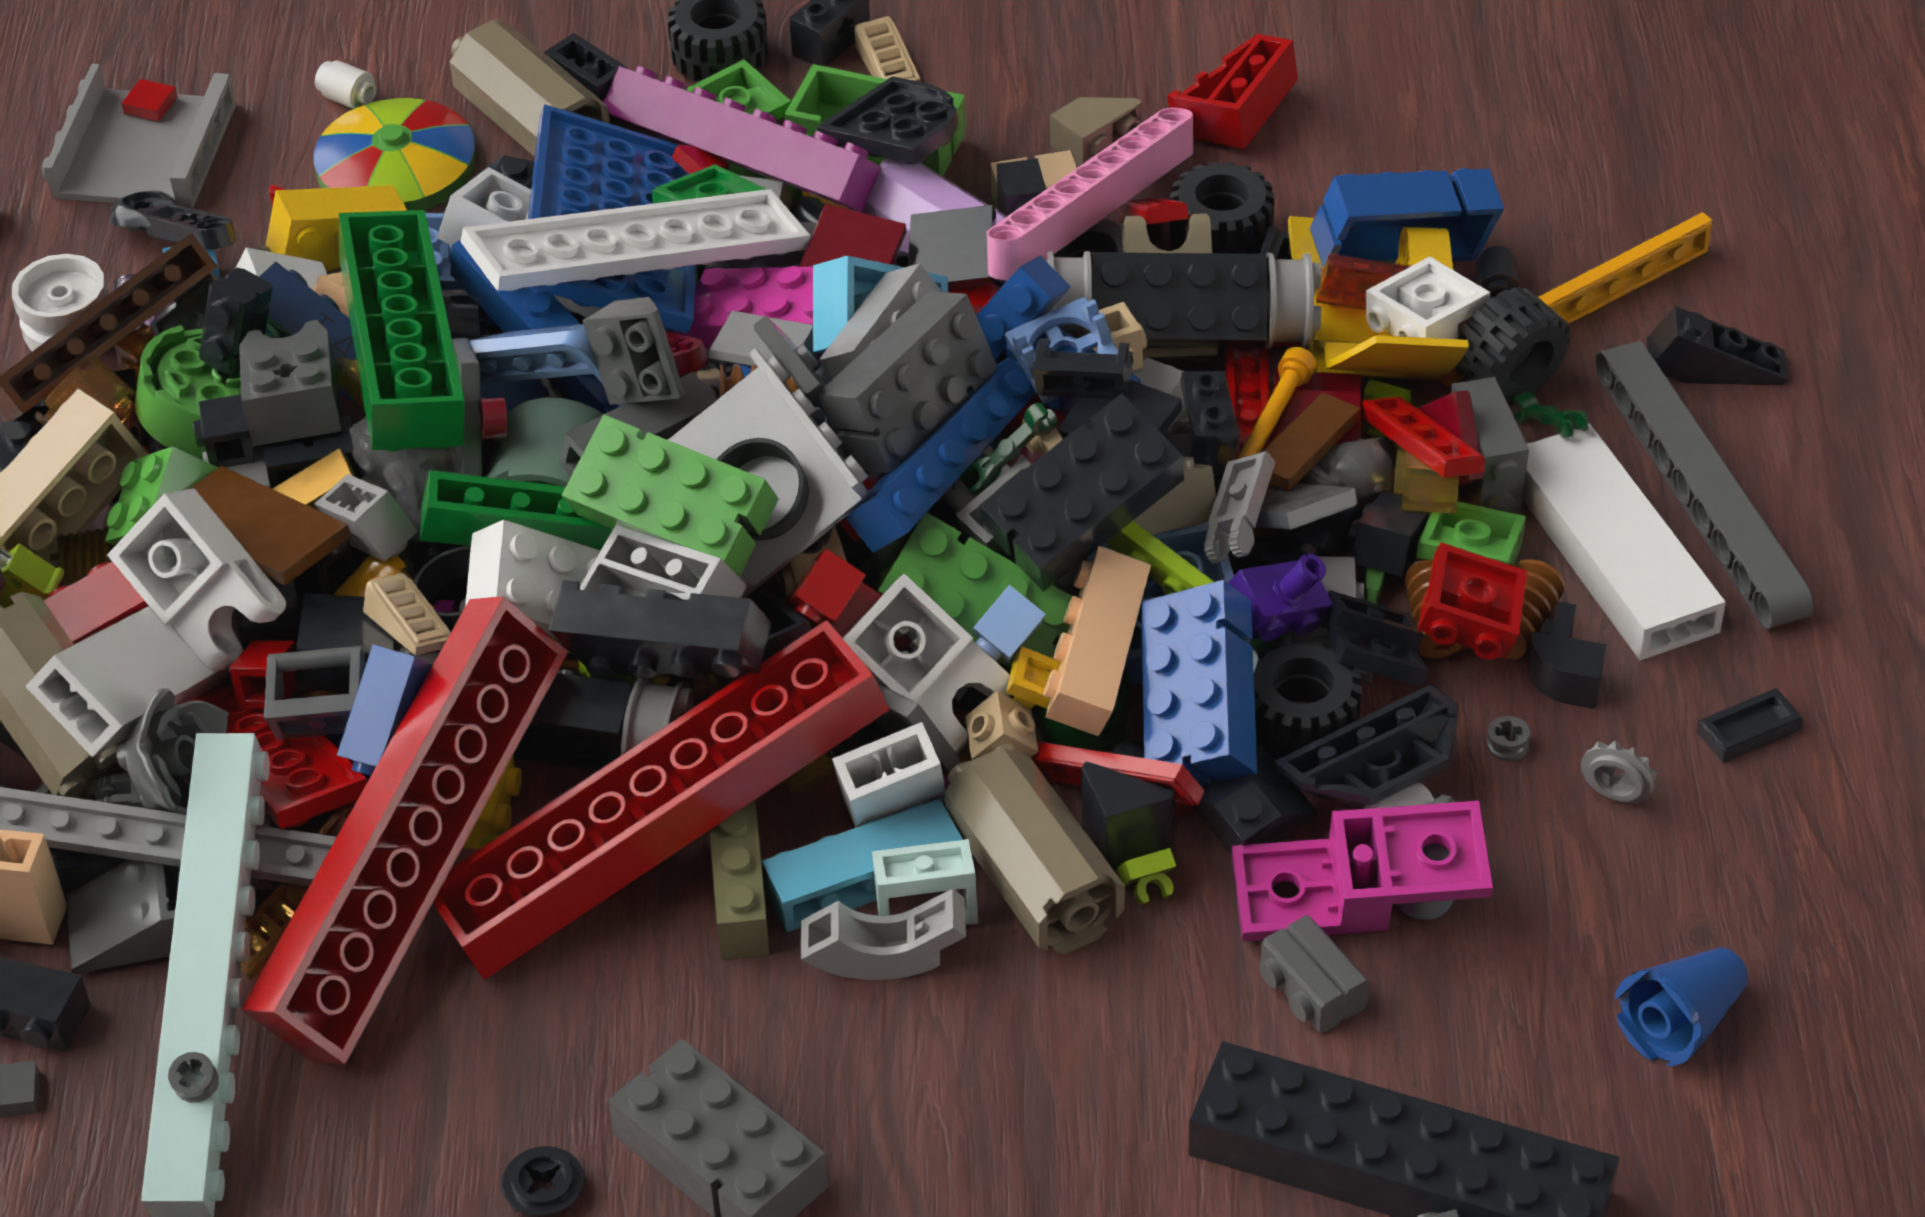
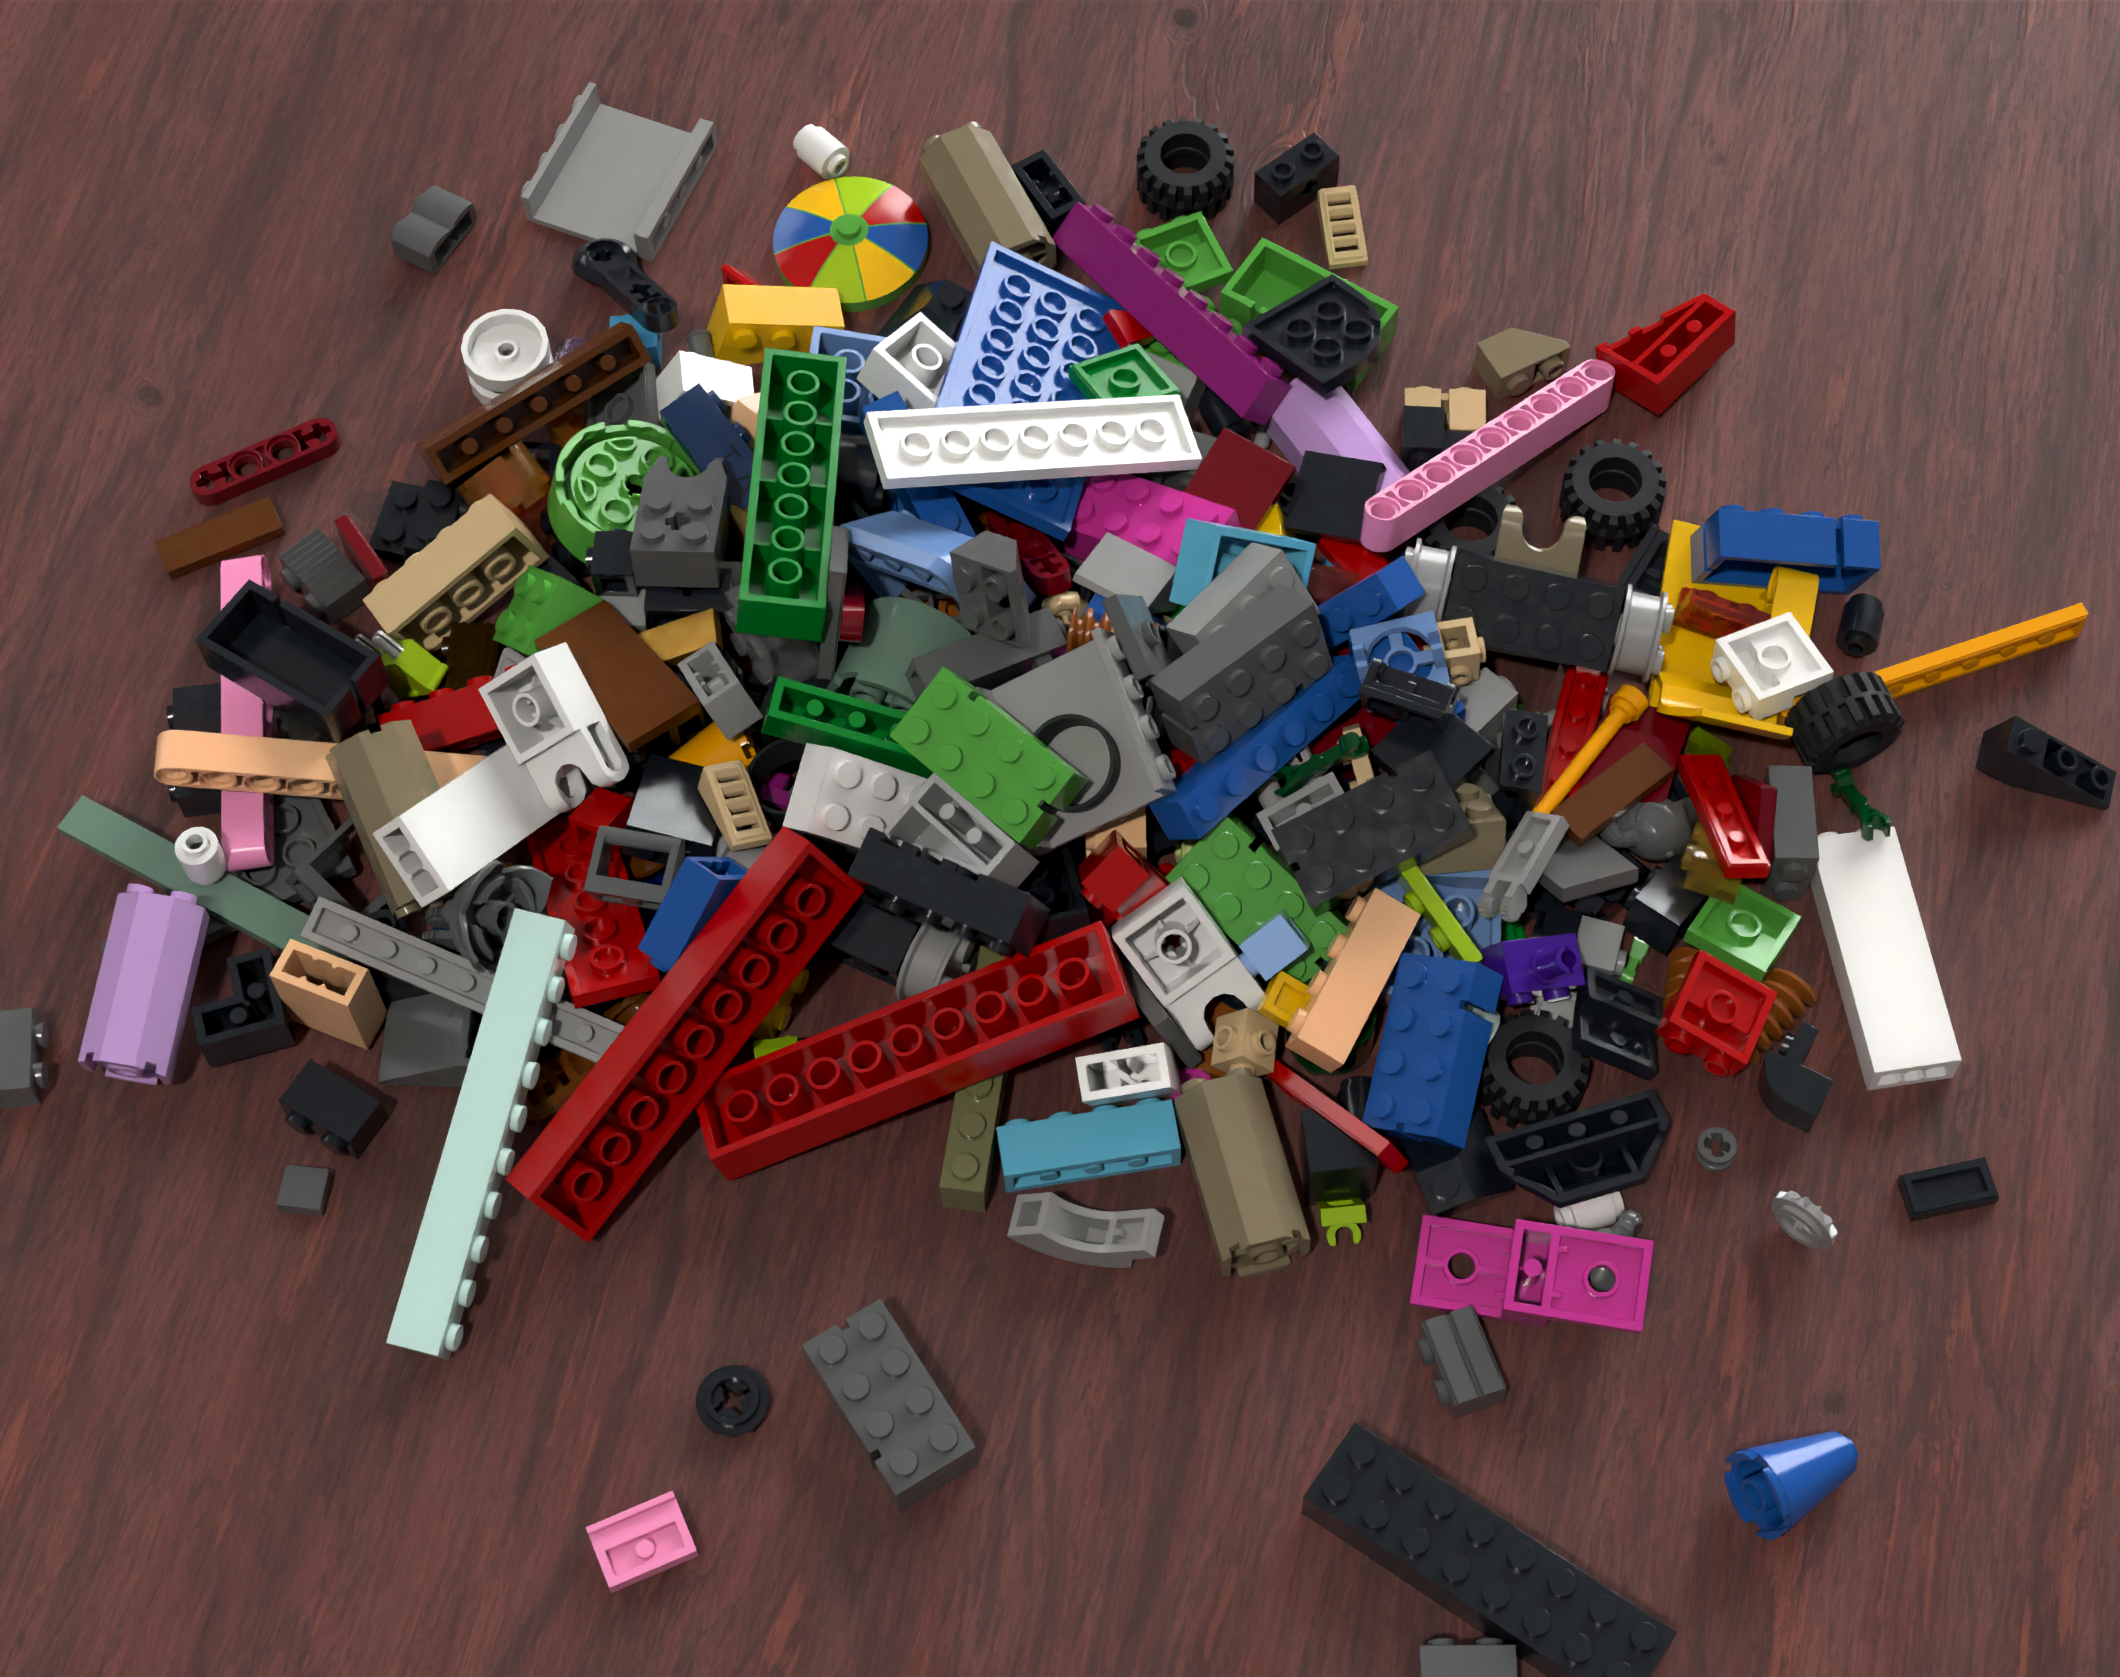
camera: 15 degrees right, 15 degrees up
(149, 100) = (636, 129): red tile -> none
(190, 1061) = (435, 1241): dark grey bush -> none
(233, 309) = (647, 433): black brick -> none
(924, 871) = (1137, 1179): light aqua tile -> none
(1155, 210) = (1543, 488): red tile -> none
(1704, 486) = (1986, 913): dark grey beam -> none

